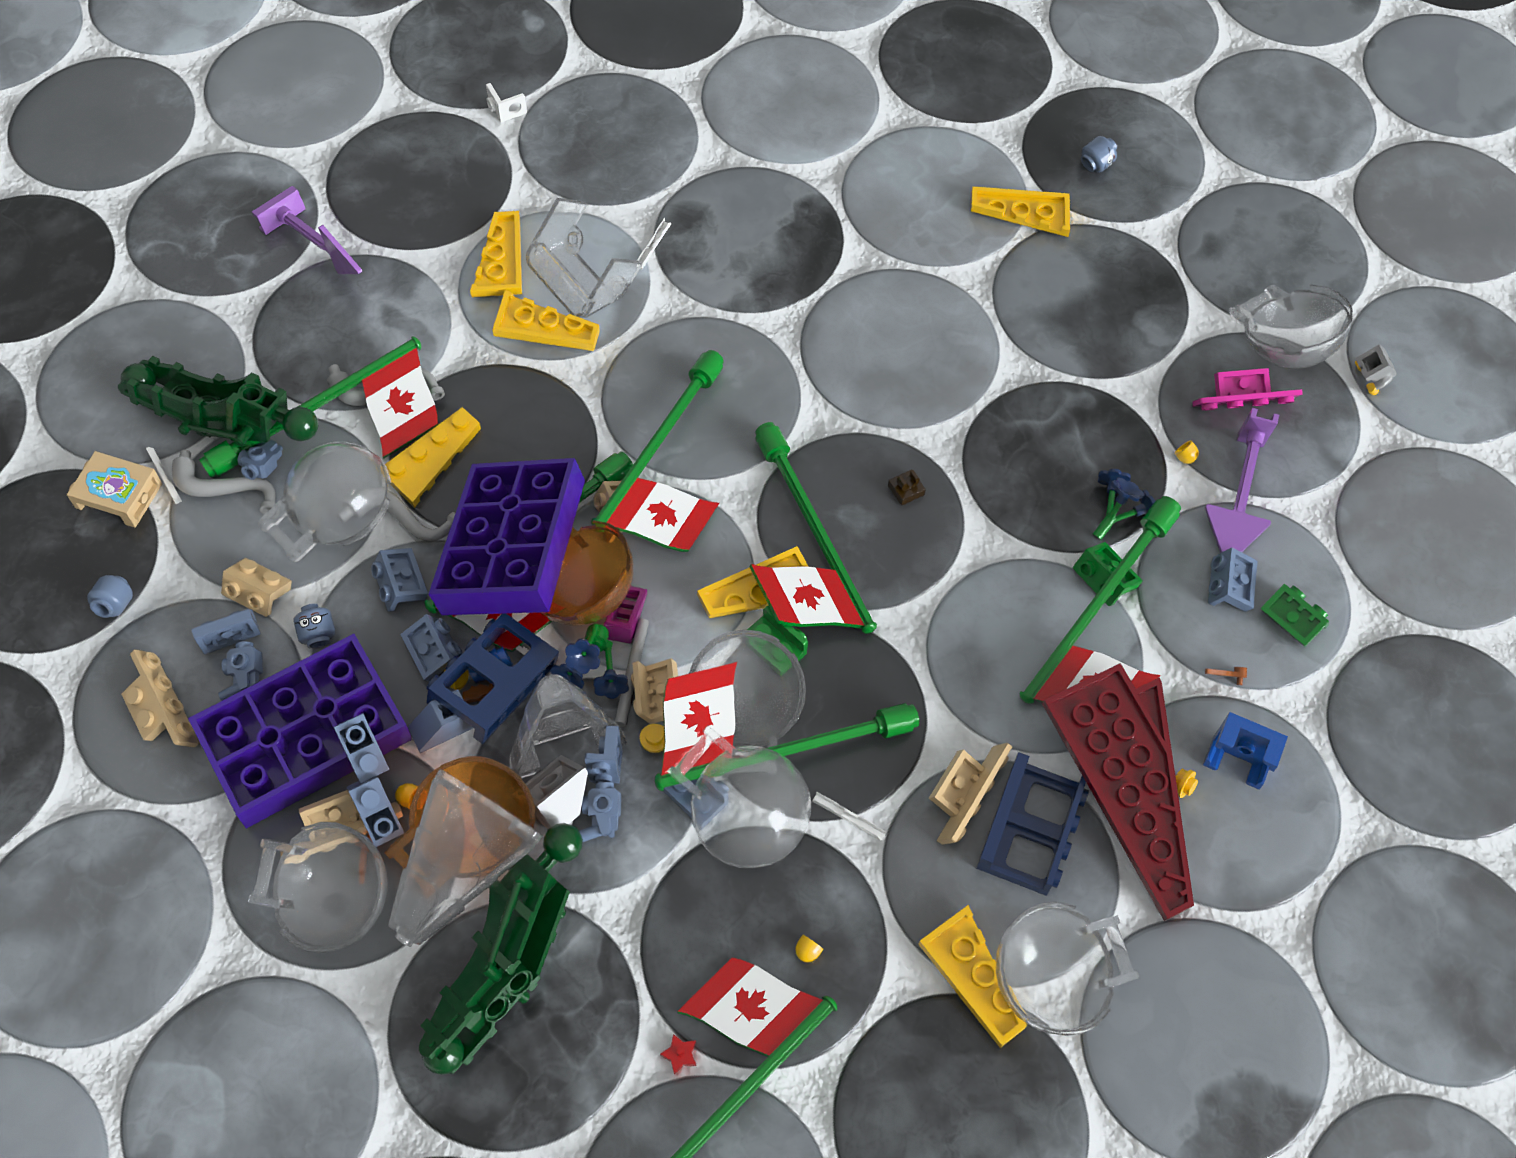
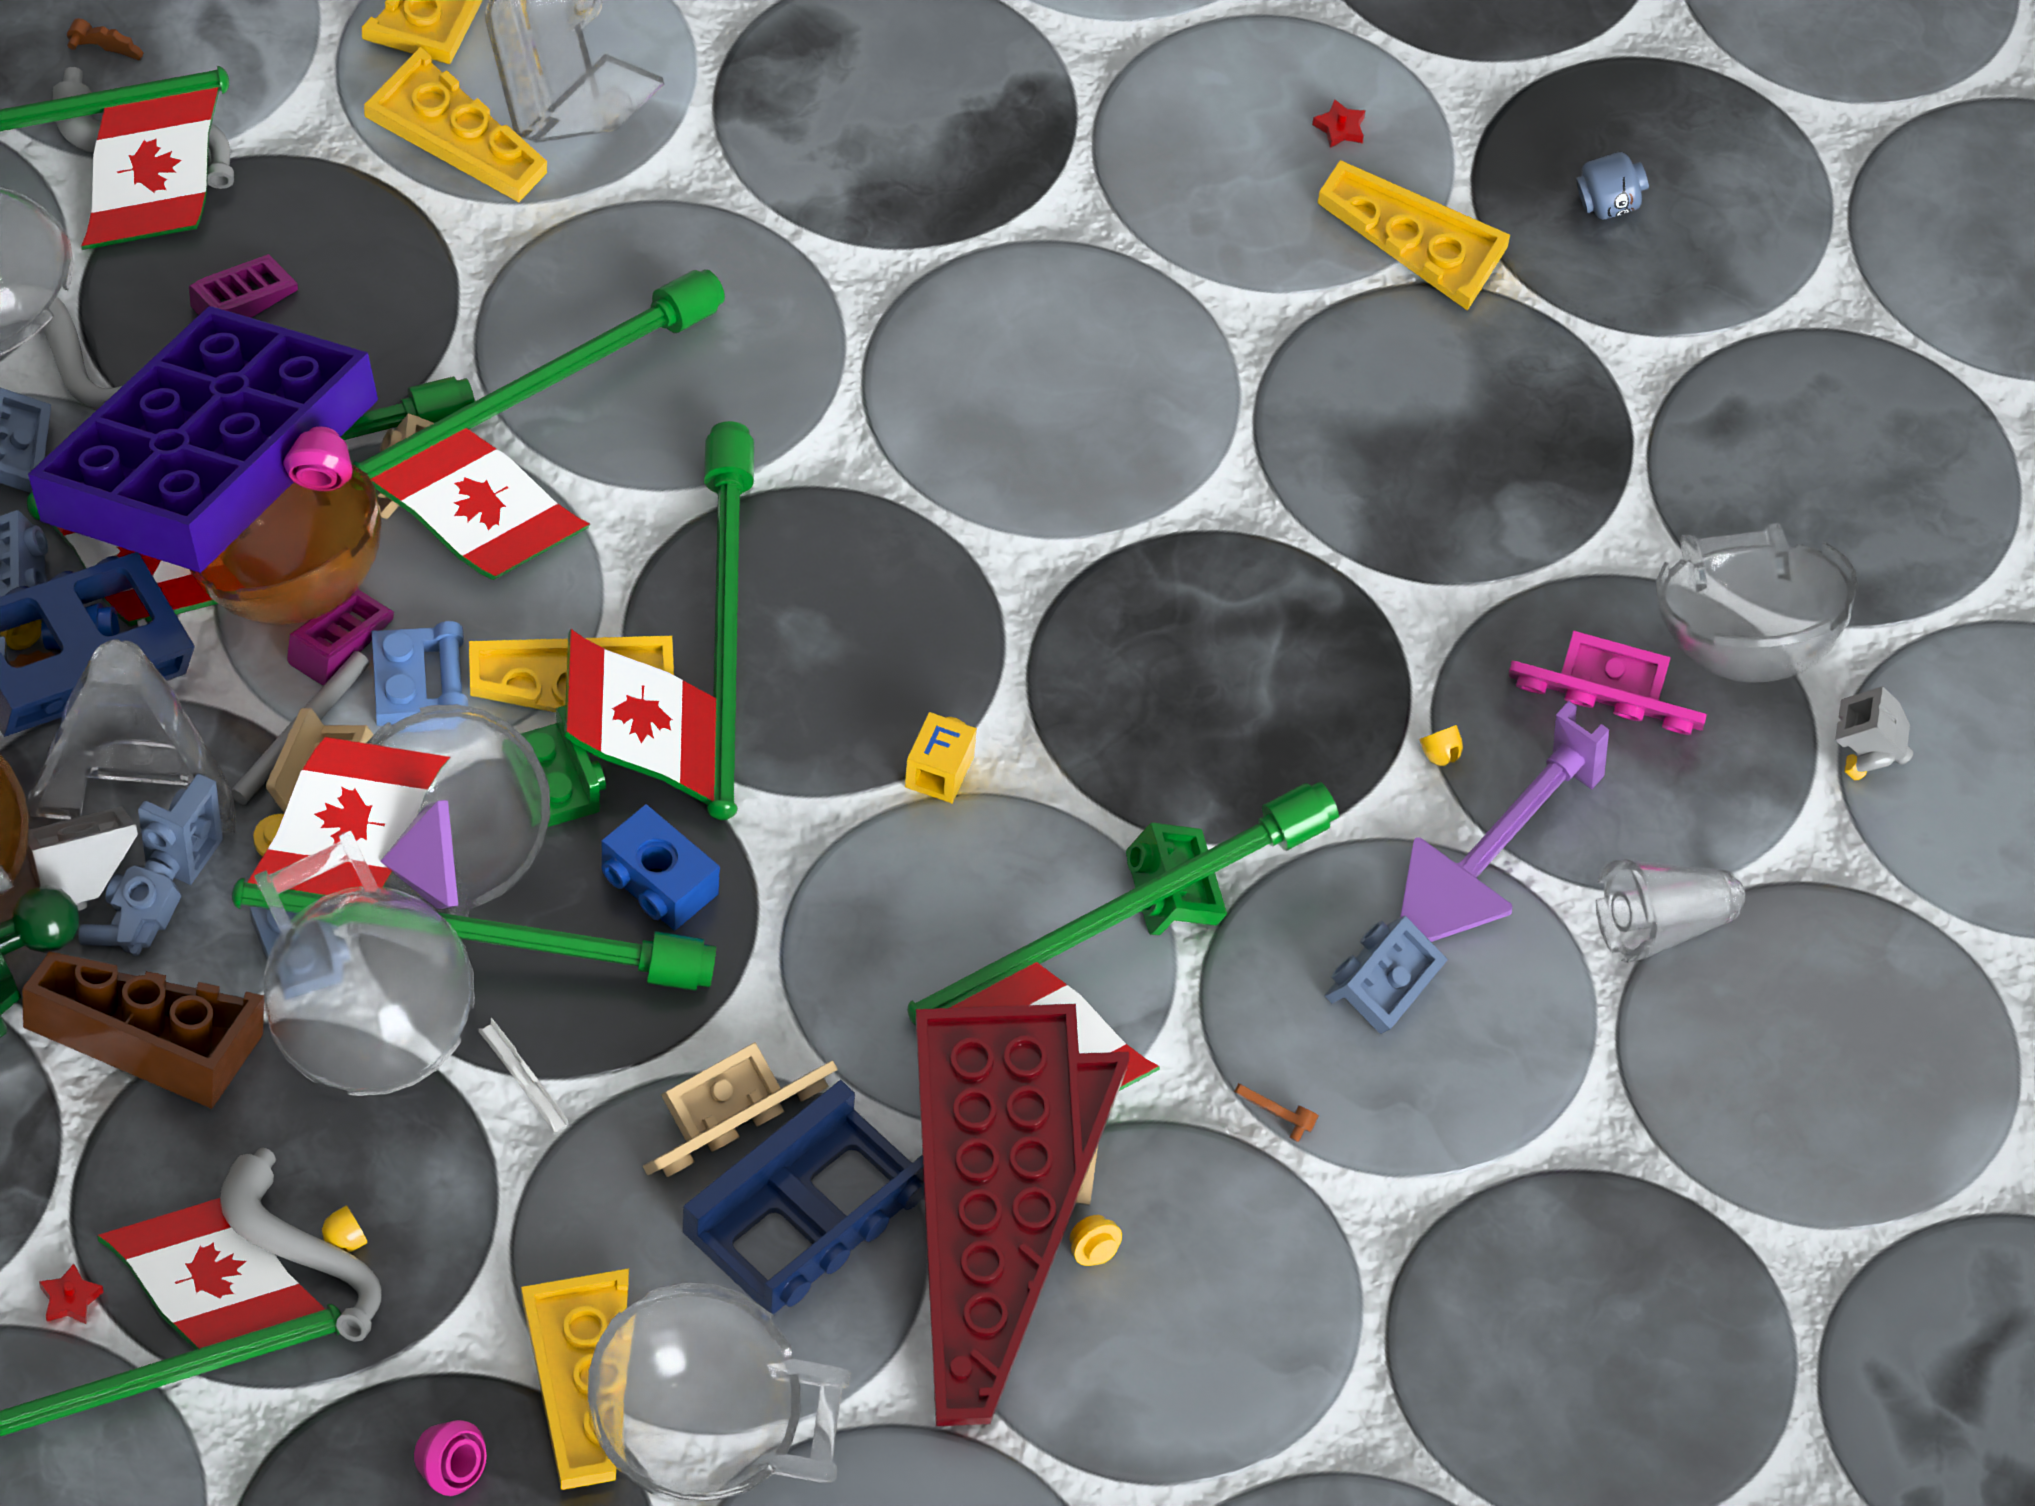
camera: 20 degrees right, 5 degrees down
(342, 344) = (110, 40): none -> dark orange piece
(421, 463) = (138, 277): yellow wing -> none
(461, 457) = (222, 285): none -> magenta slope
(580, 525) = (319, 460): none -> dark pink cone
(584, 656) = (217, 661): dark blue plant -> none
(643, 878) = (143, 1025): none -> reddish brown wedge
(659, 233) = (721, 59): white piece -> none
(669, 622) = (401, 669): none -> medium blue plate
(750, 720) = (426, 857): none -> medium lavender slope
(759, 967) = (242, 1208): none -> light grey animal
(850, 660) = (652, 843): none -> blue brick
(906, 487) = (919, 617): dark brown tile -> none
(936, 1058) = (451, 1456): none -> dark pink cone
(958, 170) = (1341, 124): none -> red piece
(961, 556) = (940, 757): none -> yellow brick
(1121, 484) = (1270, 749): dark blue plant -> none
(1248, 742) = (1227, 1213): blue panel -> none
(1295, 614) = (1457, 1067): green bracket -> none
(1338, 494) = (1662, 905): none -> clear cone

